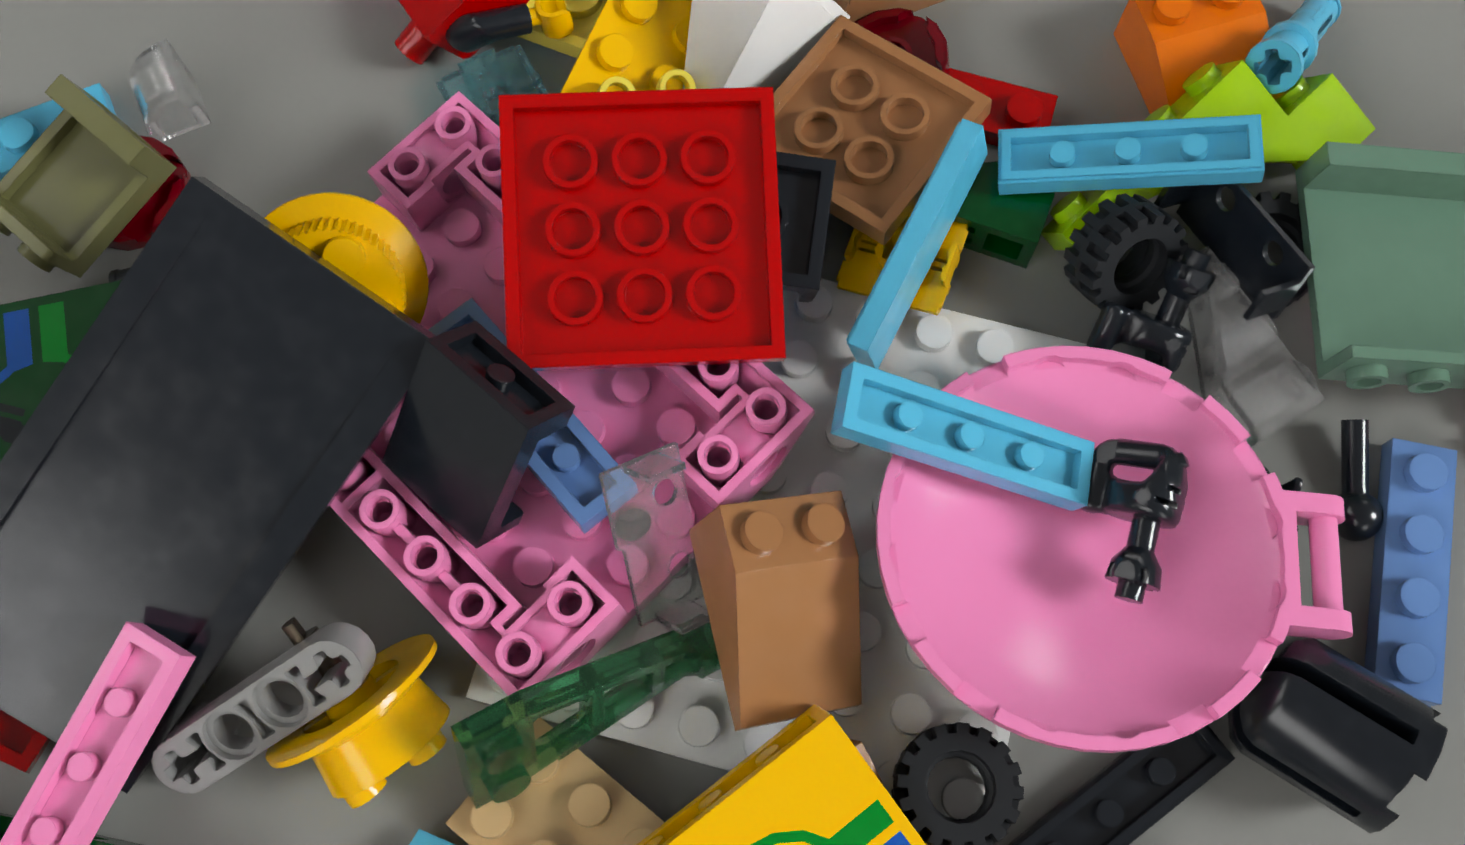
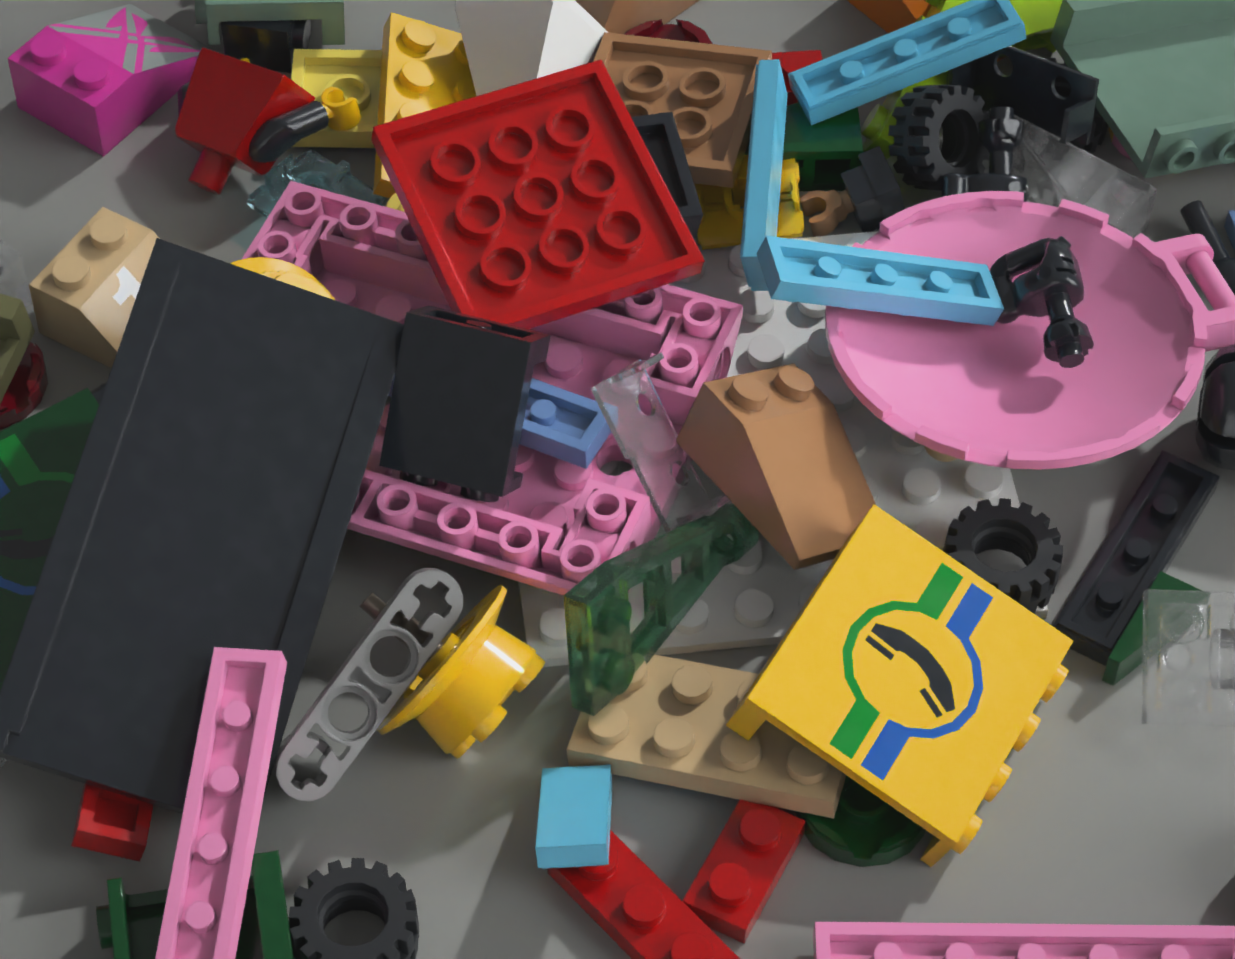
camera: 25 degrees left, 20 degrees down
(270, 141) = (93, 284): none -> tan slope
(1026, 287) = (868, 193): none -> black piece

